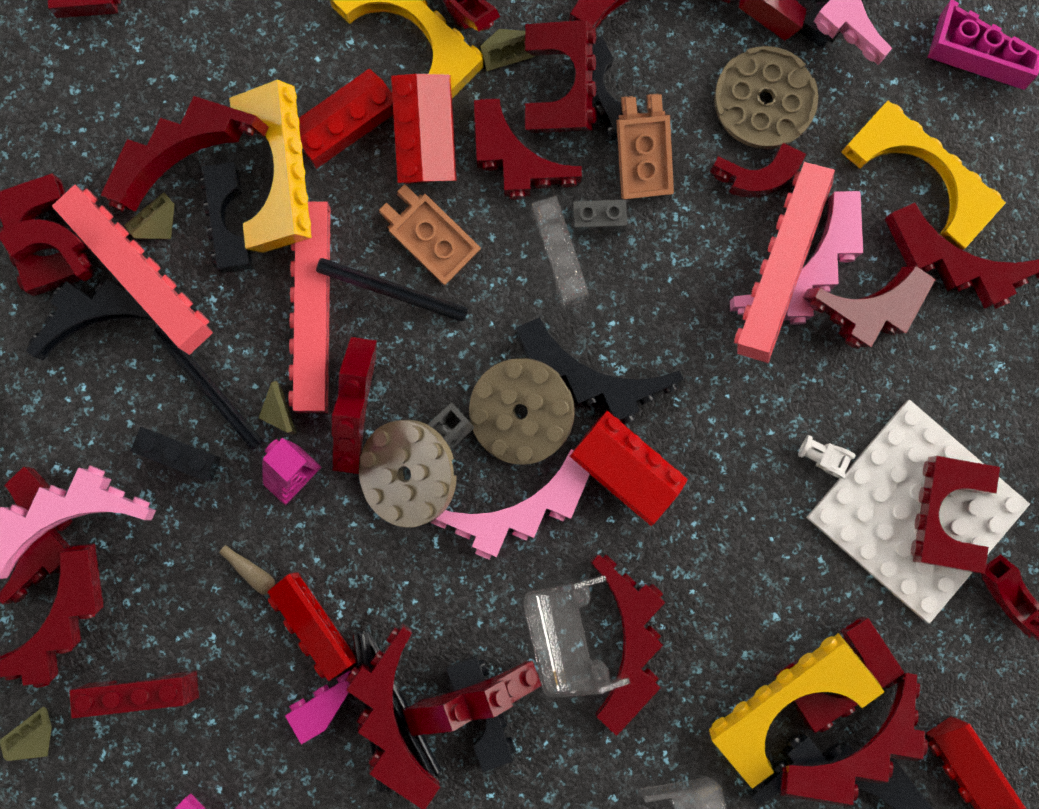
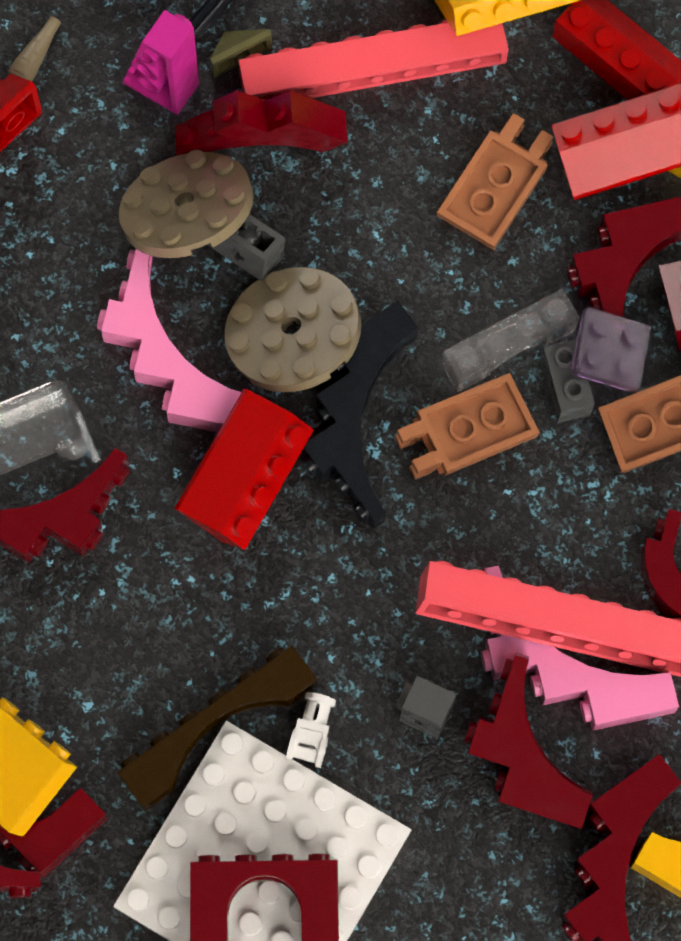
camera: 85 degrees right, 10 degrees down
(391, 289) = (414, 147): black axle -> none
(588, 178) = (611, 350): none -> clear purple plate
(618, 296) = (469, 427): none -> nougat tile
(788, 474) = (275, 684): none -> dark brown arch
(830, 370) = (425, 706): none -> dark grey brick

